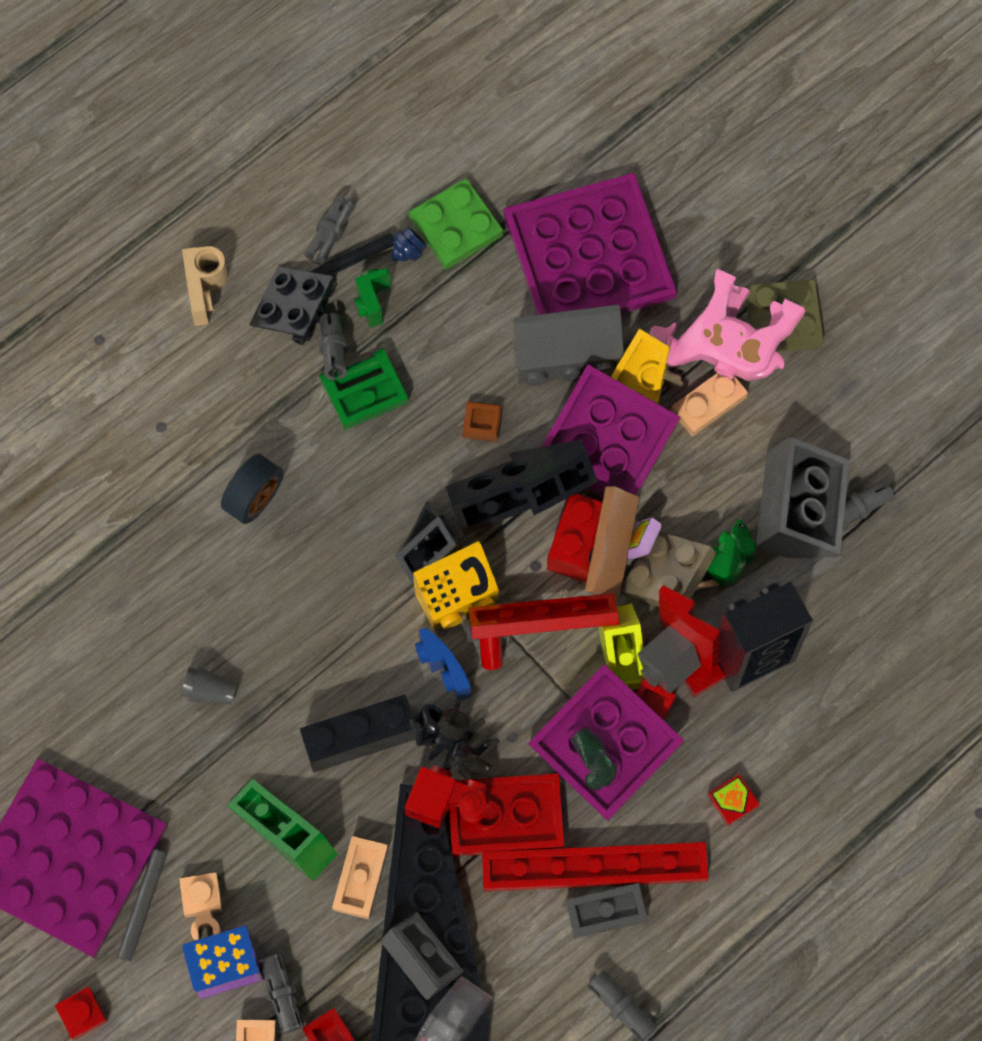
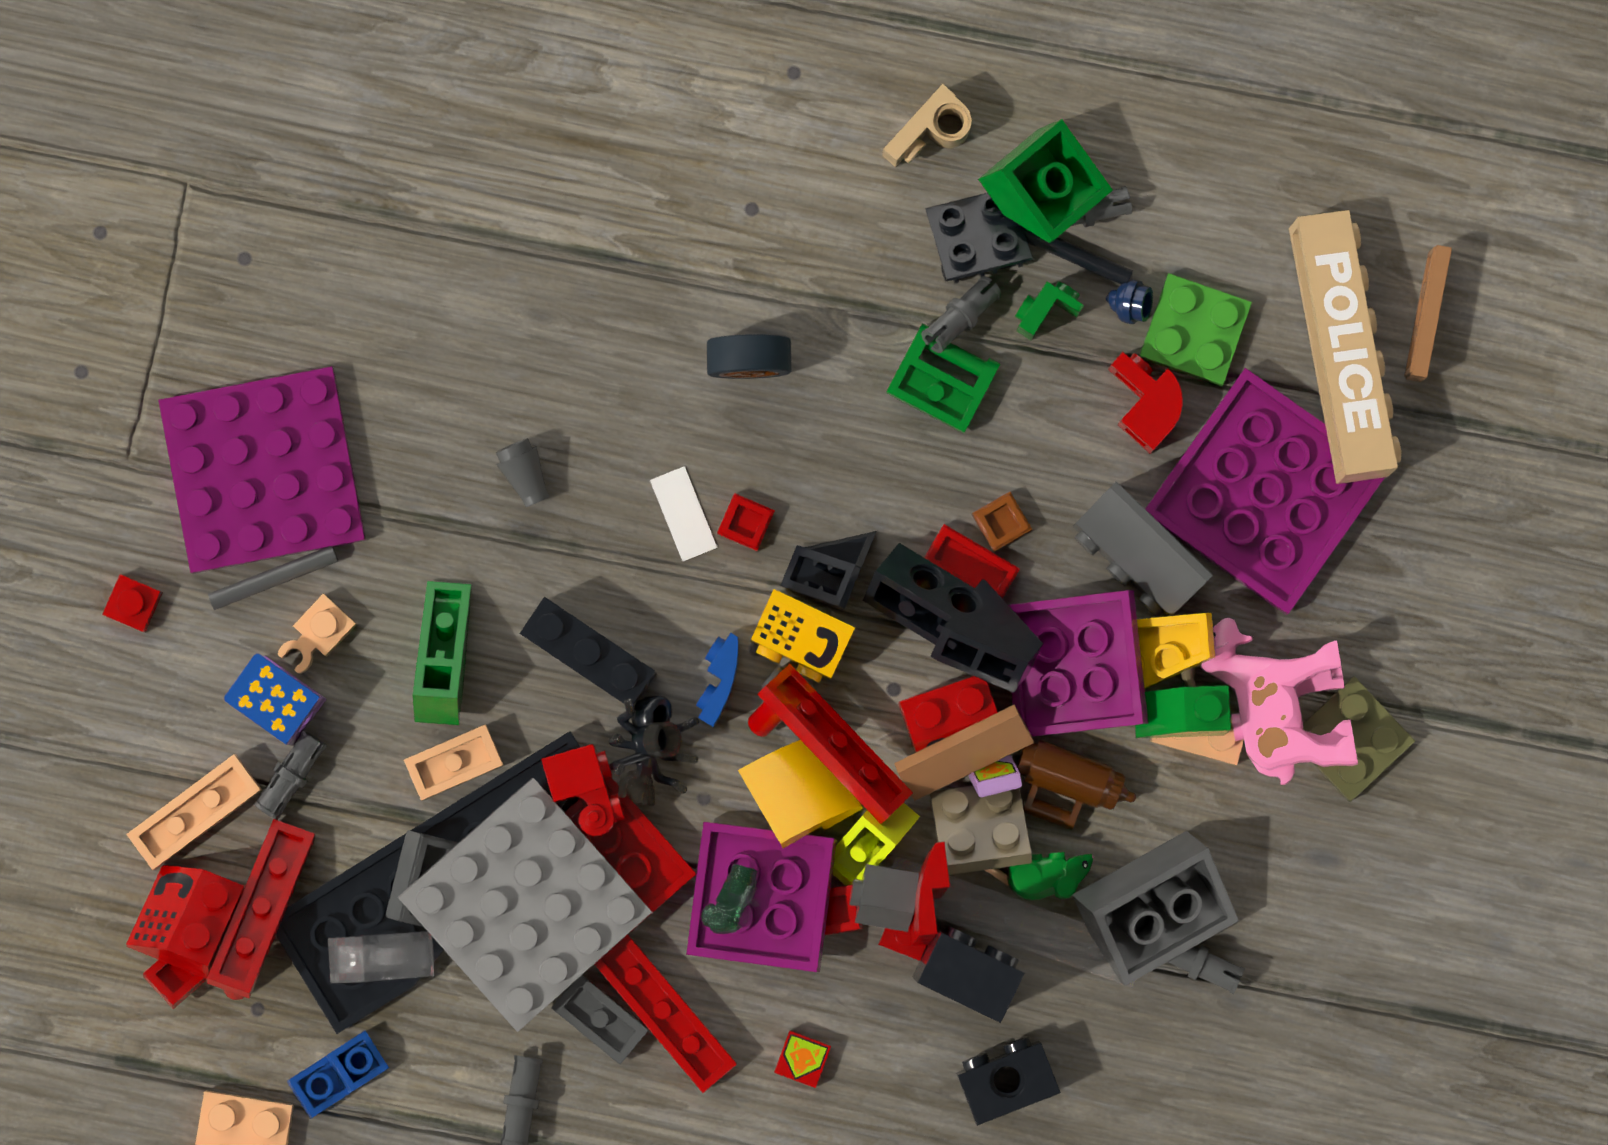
camera: 50 degrees right, 15 degrees up
(293, 234) = (1046, 182): none -> green slope
(317, 611) = (683, 513): none -> white sticker
(355, 575) = (745, 522): none -> red tile
(483, 273) = (1158, 404): none -> red brick
(489, 454) = (970, 561): none -> red tile
(492, 897) = (524, 904): none -> light grey plate
(537, 142) = (1344, 346): none -> tan brick
(555, 85) = (1427, 313): none -> medium nougat tile
(555, 666) = (797, 792): none -> yellow slope
(679, 494) = (1072, 777): none -> reddish brown piece
(694, 389) = (1186, 712): none -> green slope
(857, 659) = (1034, 1083): none -> black brick

